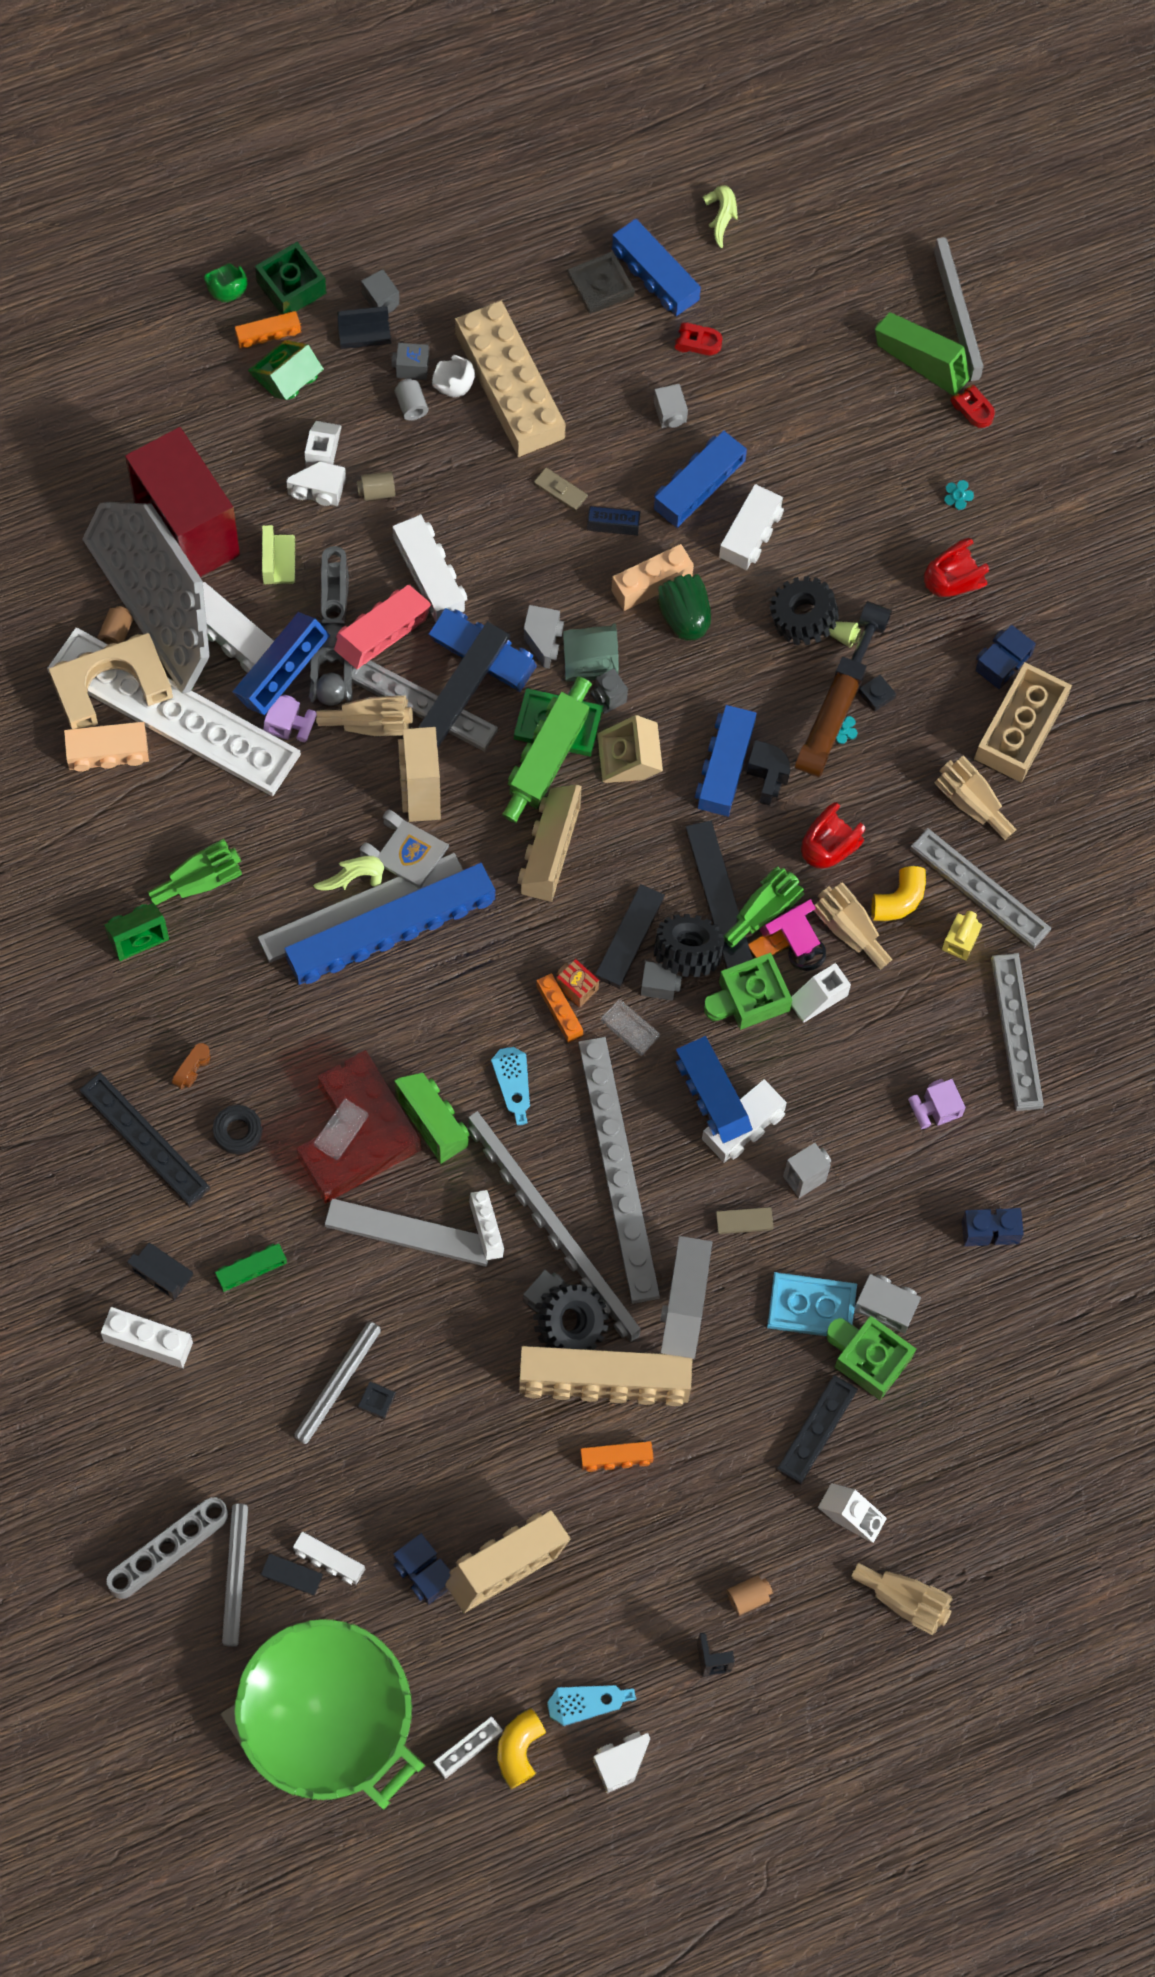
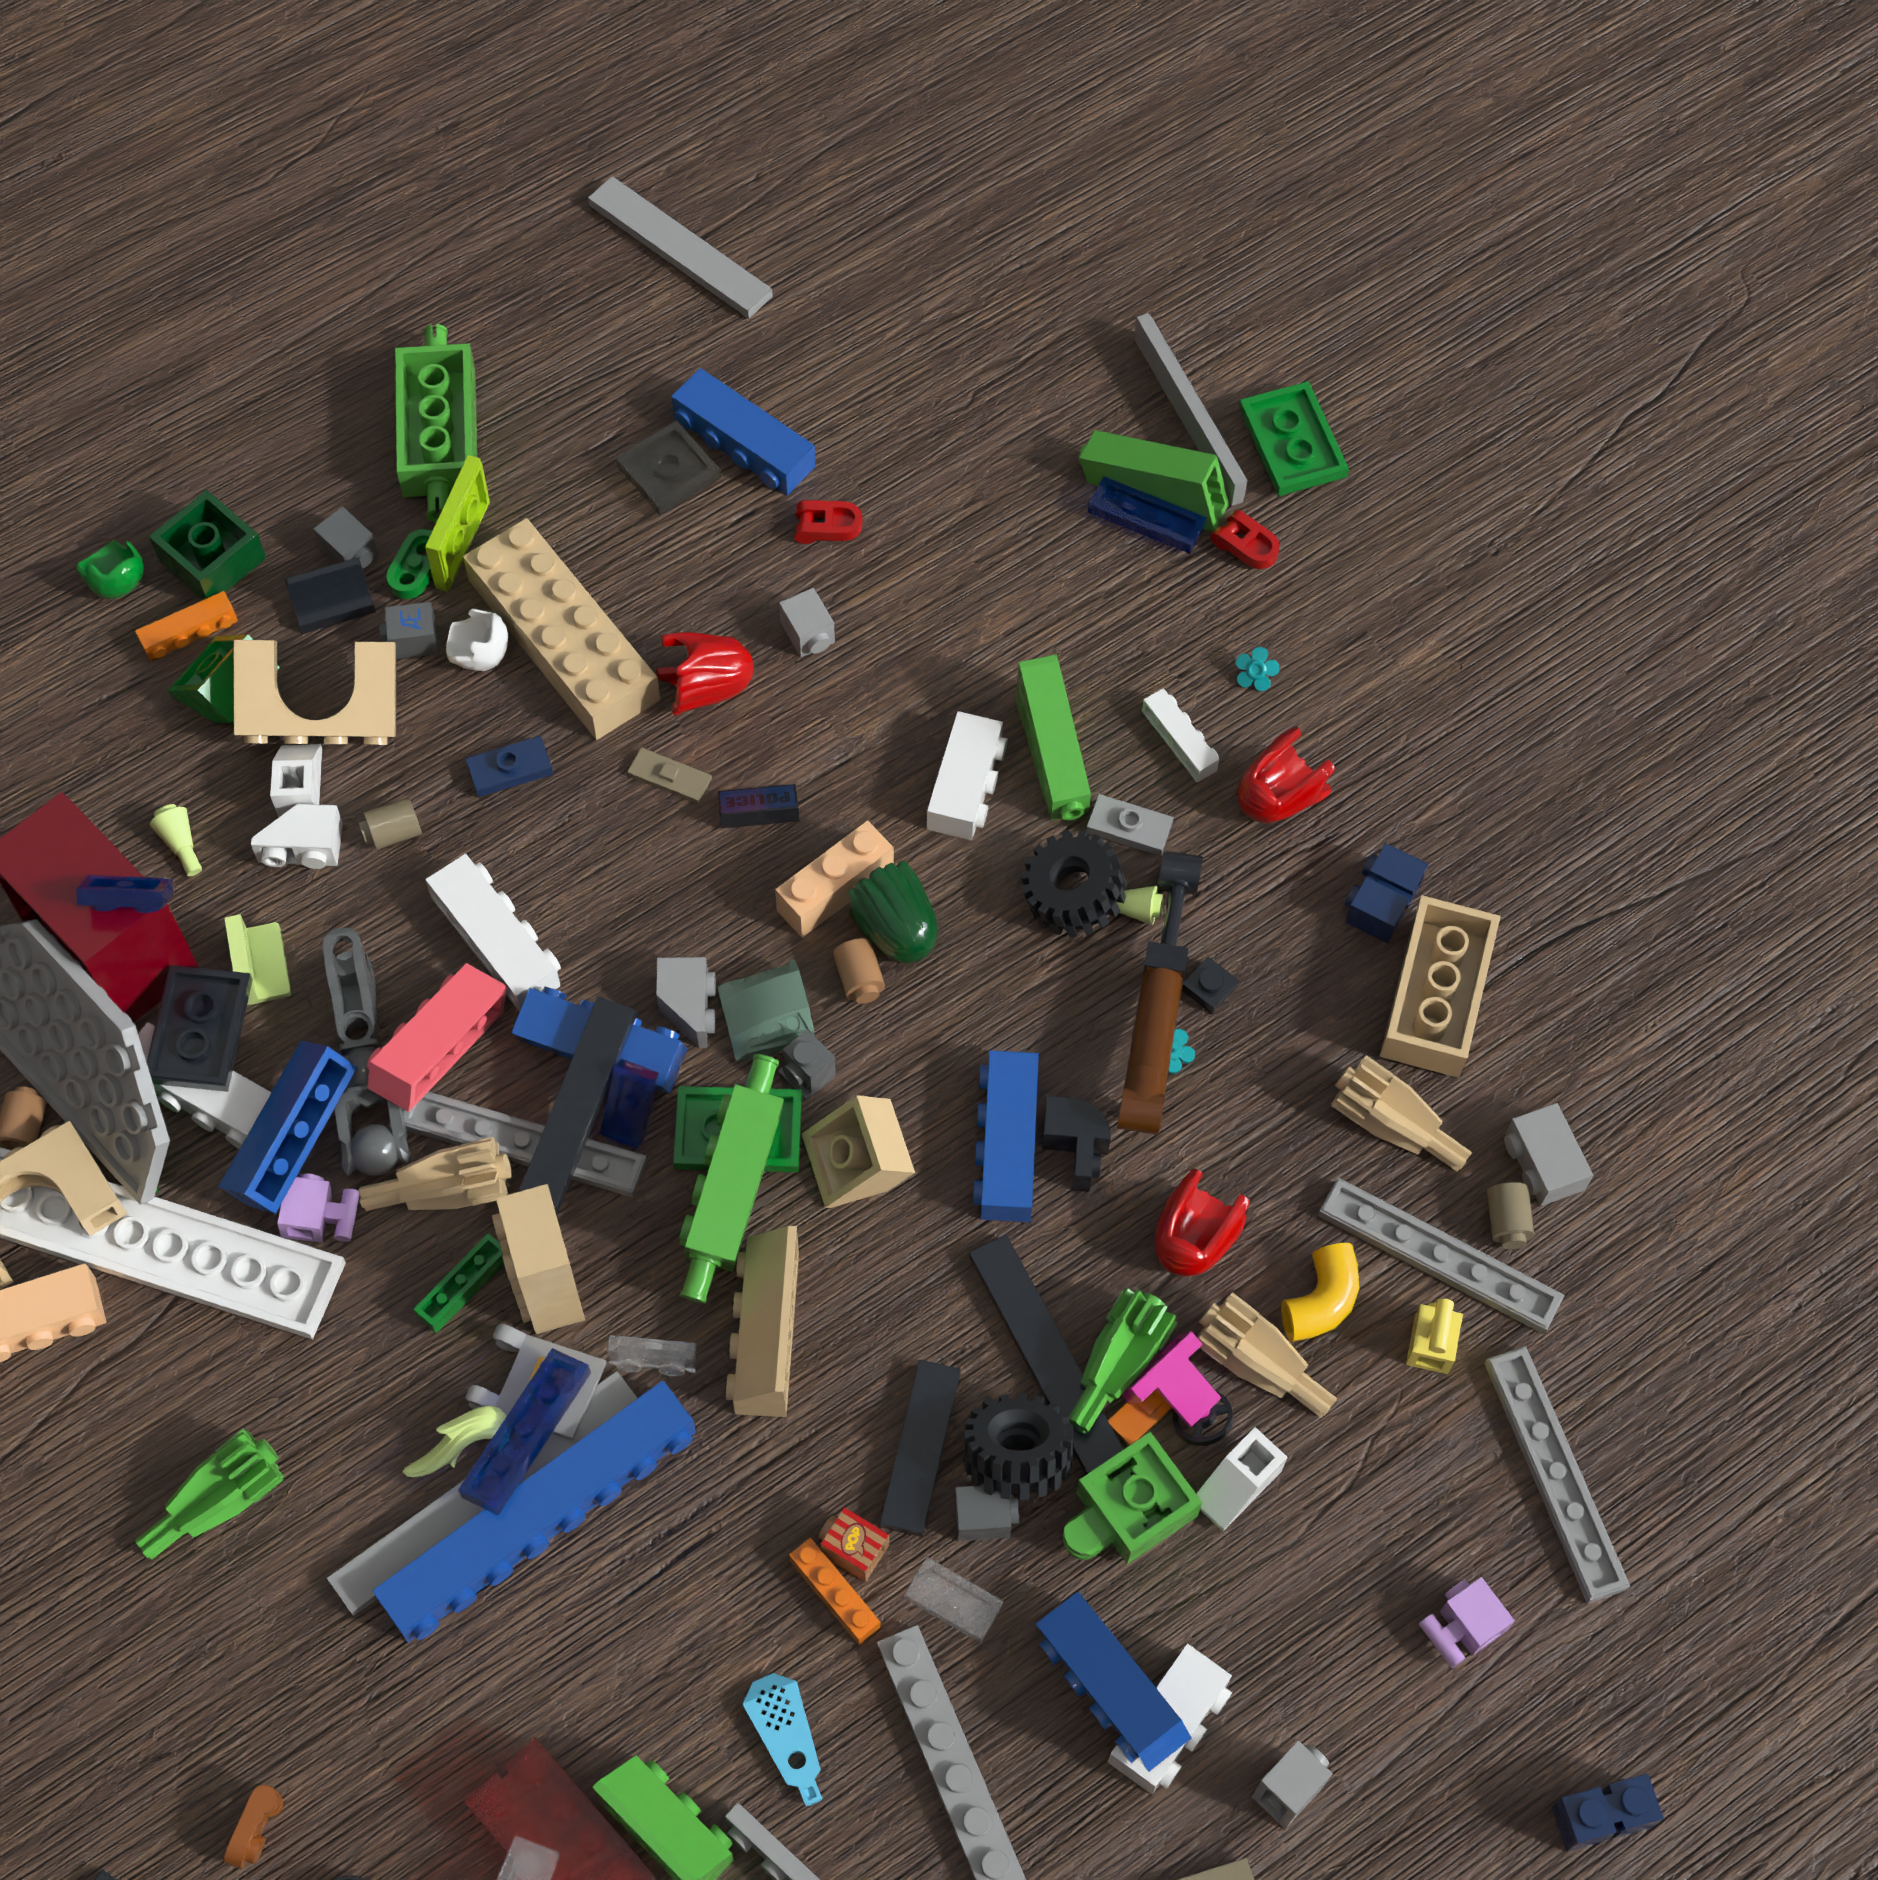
camera: 10 degrees left, 5 degrees down
(136, 931) = (125, 1612): green slope -> none
(202, 496) = (111, 892): none -> clear blue plate
(236, 591) = (198, 1028): none -> black tile
(239, 463) = (173, 828): none -> yellowish green cone
(308, 398) = (262, 712): none -> tan arch
(369, 781) = (460, 1284): none -> green piece
(392, 874) = (524, 1431): none -> clear blue plate
(411, 399) = (420, 687): light grey brick -> none
(421, 318) = (410, 566): none -> green plate
(454, 221) = (434, 417): none -> bright green brick
(455, 295) = (457, 523): none -> lime tile
(459, 463) = (509, 766): none -> dark blue plate
(485, 849) = (635, 1353): none -> clear plate
(493, 692) = (629, 1103): none -> clear blue plate
(601, 428) = (711, 673): none -> red hair
(640, 128) = (680, 247): none -> light grey tile
(655, 638) = (859, 970): none -> medium nougat brick
(700, 478) = (873, 719): blue brick -> none
(727, 209) = (828, 334): yellowish green piece -> none
(812, 513) = (1052, 737): none -> bright green slope
(850, 580) = (1130, 825): none -> light grey plate
(897, 528) = (1180, 735): none -> white piece
(911, 376) = (1147, 515): none -> clear blue plate
(1023, 342) = (1293, 438): none -> green plate
(1030, 872) = (1510, 1214): none -> dark tan brick
(1063, 841) = (1548, 1155): none -> light grey brick

